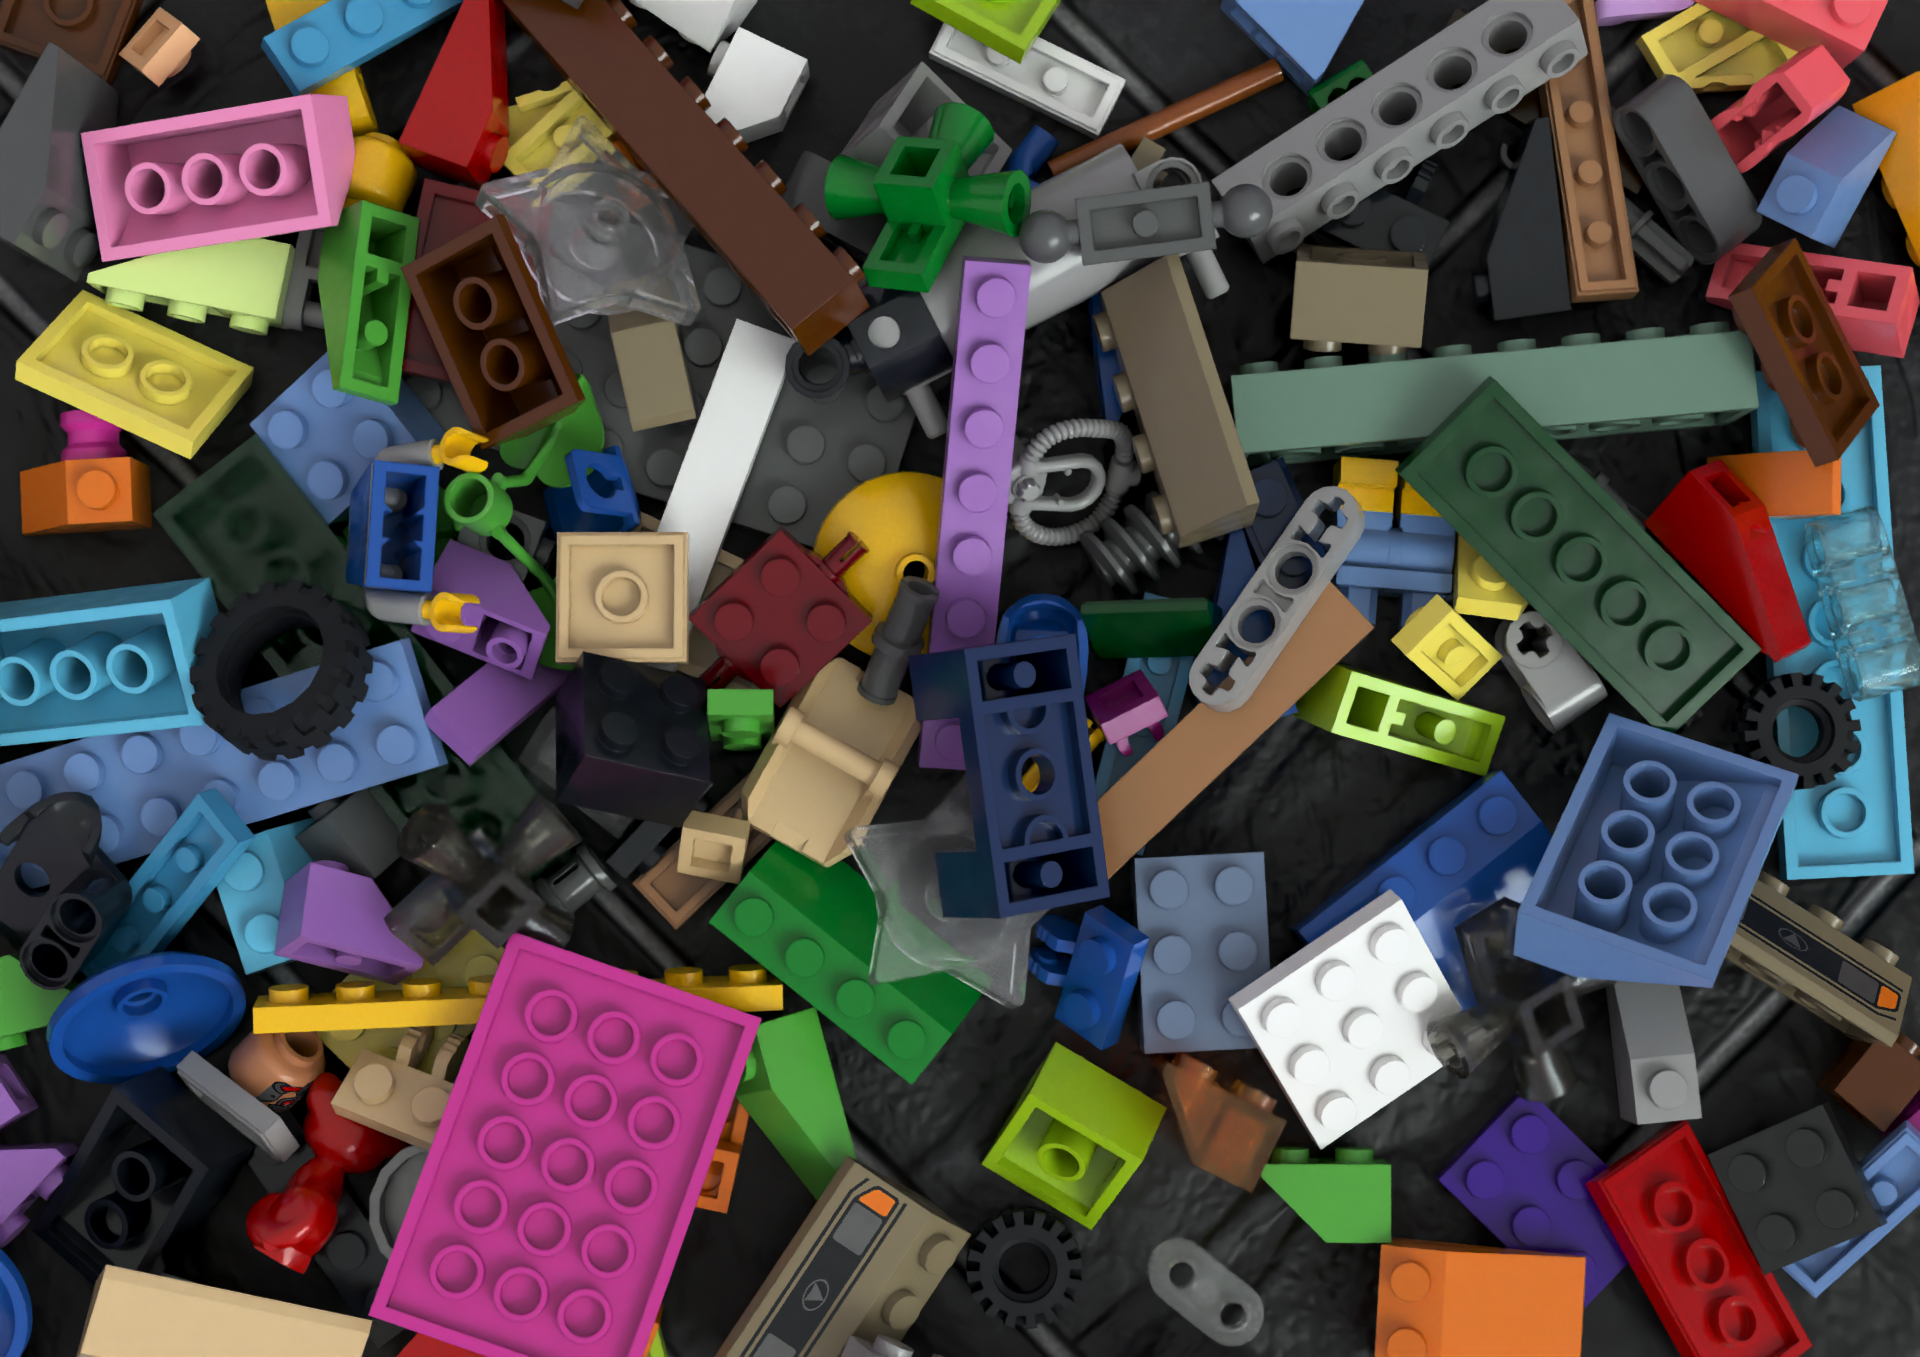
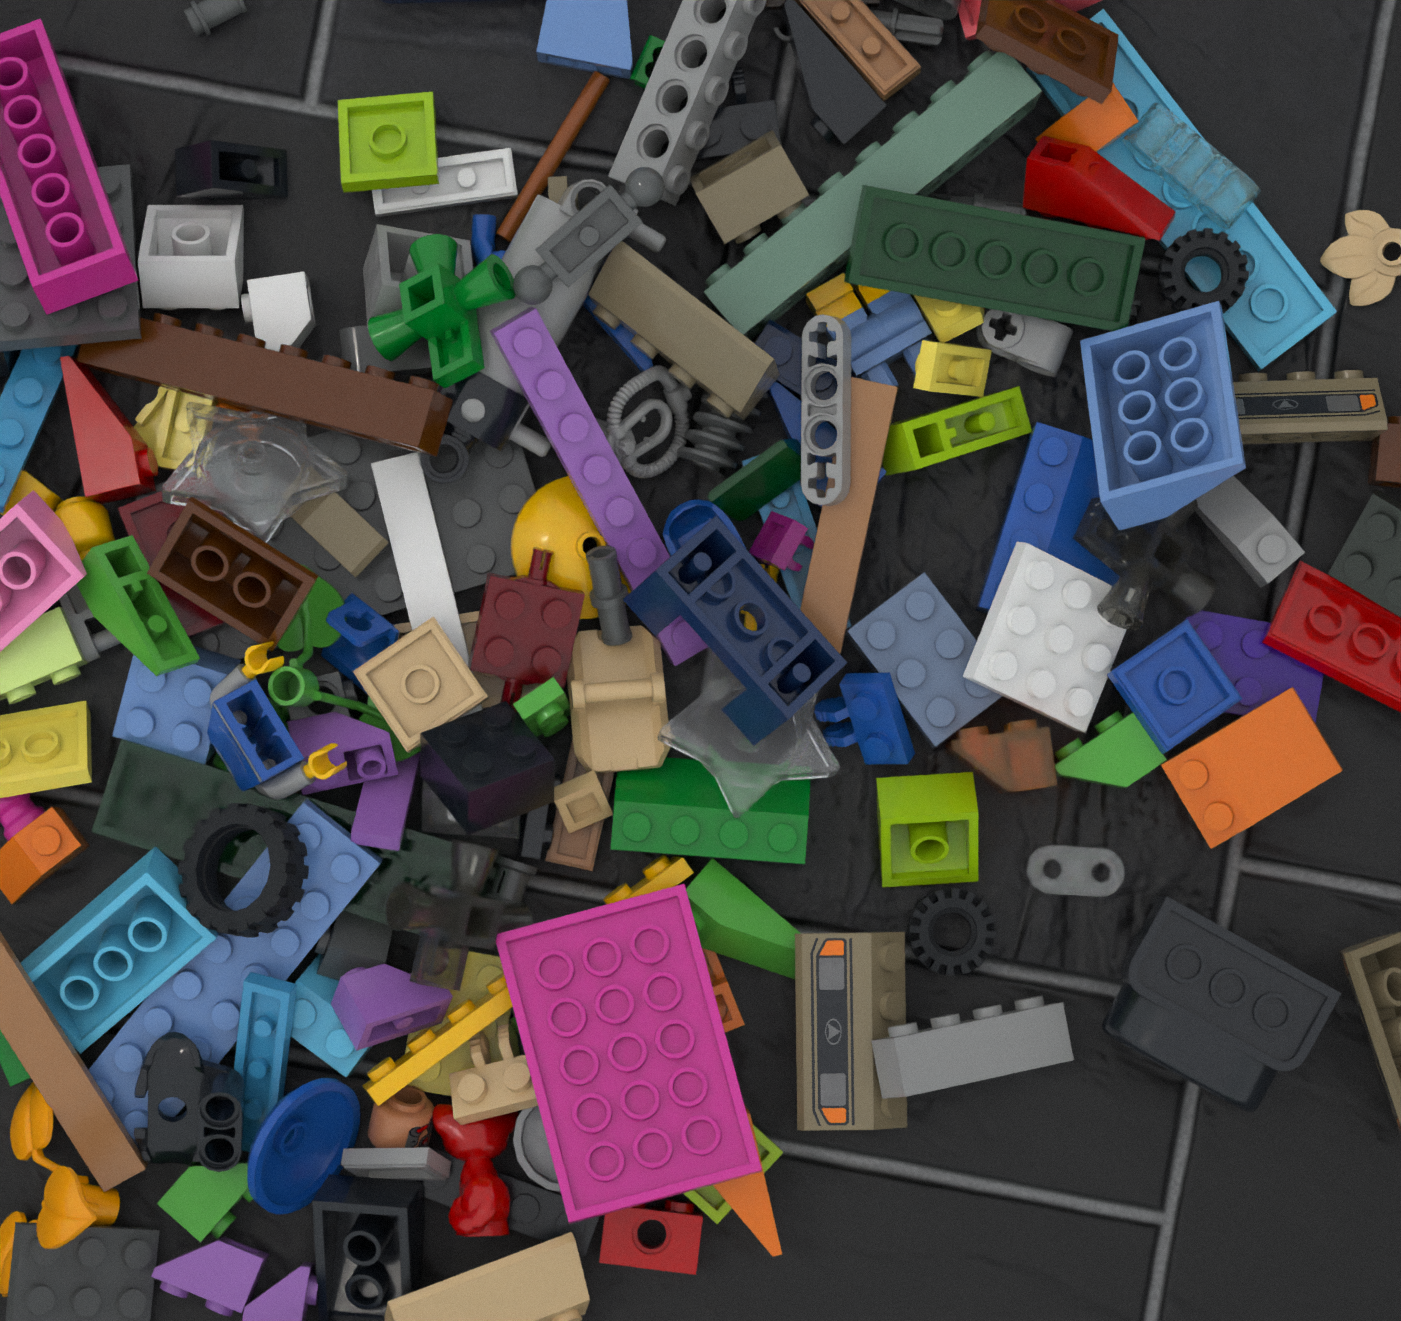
camera: 25 degrees left, 0 degrees up
(1454, 1167) = (1174, 686): none -> blue tile

